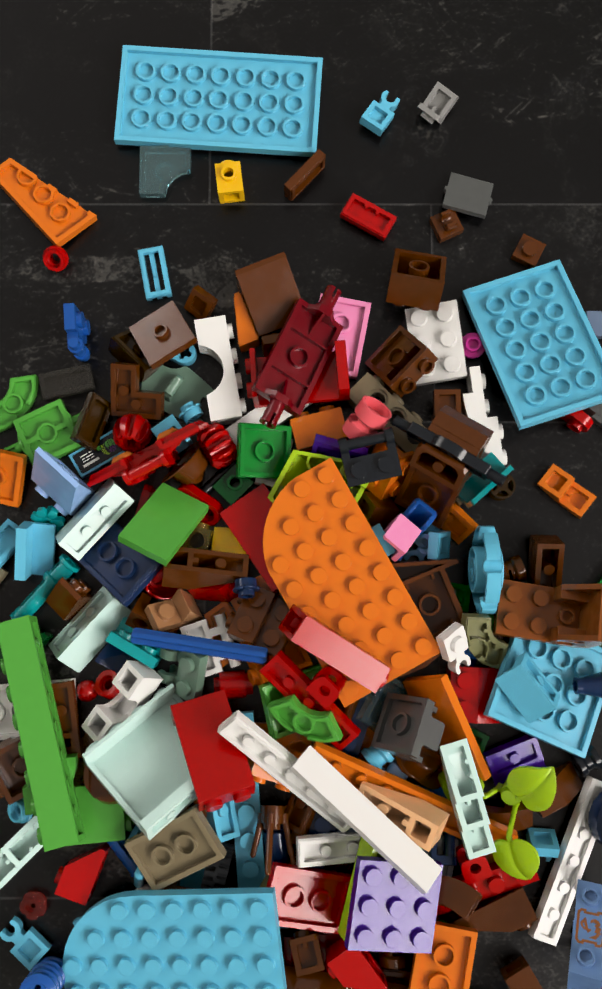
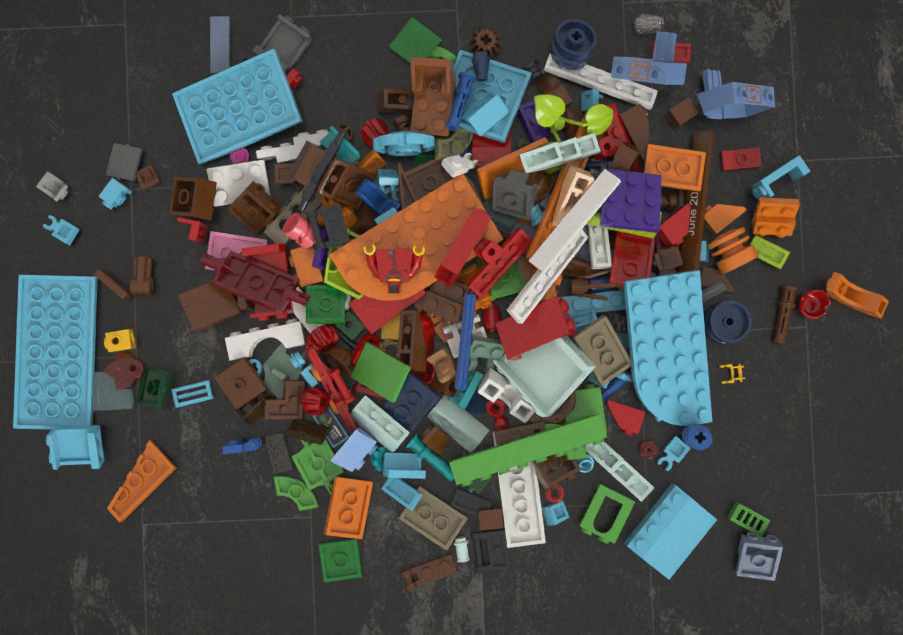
camera: 90 degrees left, 5 degrees up
(51, 263) = (189, 468): red plate -> none
(93, 120) = (75, 446): none -> medium azure panel
(164, 225) = (155, 387): none -> dark green slope
(190, 183) = (122, 370): none -> clear red plate
(200, 303) = (215, 357): reddish brown plate -> none
(245, 329) = (235, 322): orange slope -> none
(246, 587) = (423, 311): dark blue plate -> none
(307, 212) = (141, 281): none -> reddish brown piece
(307, 722) = (515, 259): bright green tile -> none
(311, 547) = (394, 264): none -> red torso
(368, 217) = (143, 235): red plate -> none
(371, 283) = (197, 231): none -> red panel
(401, 535) = (382, 203): bright pink panel -> none
(425, 180) = (114, 194): none -> medium azure brick
(506, 526) = (372, 129): none -> red piece
(528, 251) = (166, 116): reddish brown plate -> none
(556, 655) = (462, 93): none -> blue pin
(566, 491) = (345, 86): orange slope -> none

